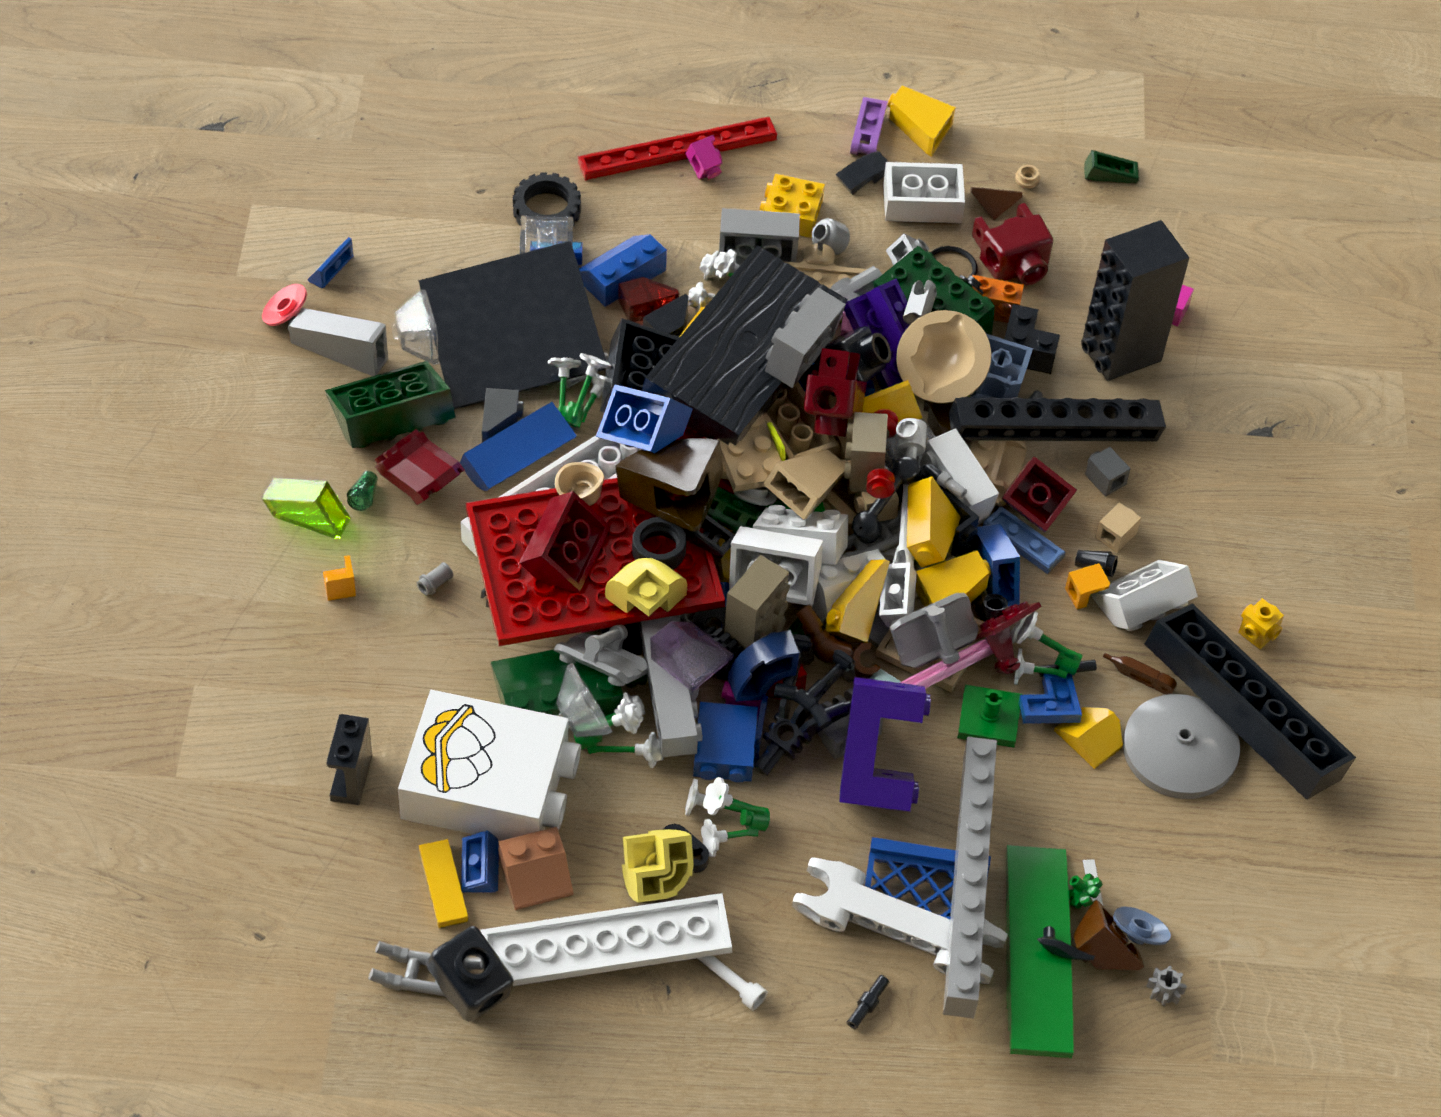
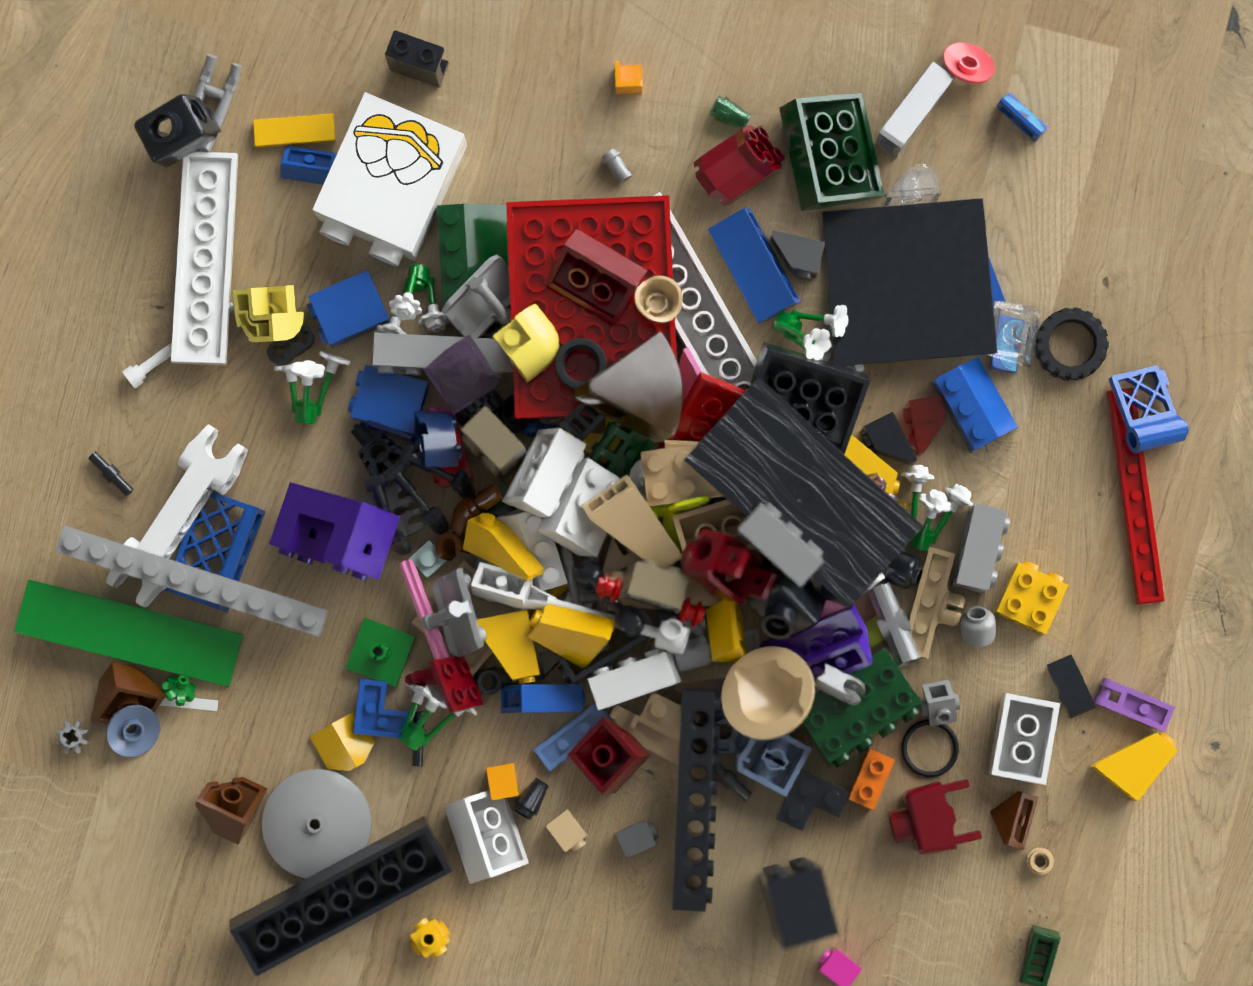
camera: 105 degrees right, 30 degrees up
(307, 505) = (714, 56): clear neon green slope -> none
(535, 868) = (289, 210): nougat slope -> none
(580, 706) = (426, 270): clear slope -> none
(612, 132) = (1153, 430): none -> piece
(635, 793) = (347, 309): none -> blue brick
(642, 419) = (713, 369): blue slope -> none
(705, 158) = (1106, 518): dark pink brick -> none
(945, 480) = (617, 659): light grey piece -> none
(974, 282) = (870, 751): black plant -> none
(1060, 948) = (112, 647): black bar -> none
(1143, 673) = (399, 808): reddish brown piece -> none
(1191, 815) = (230, 806): none -> reddish brown slope

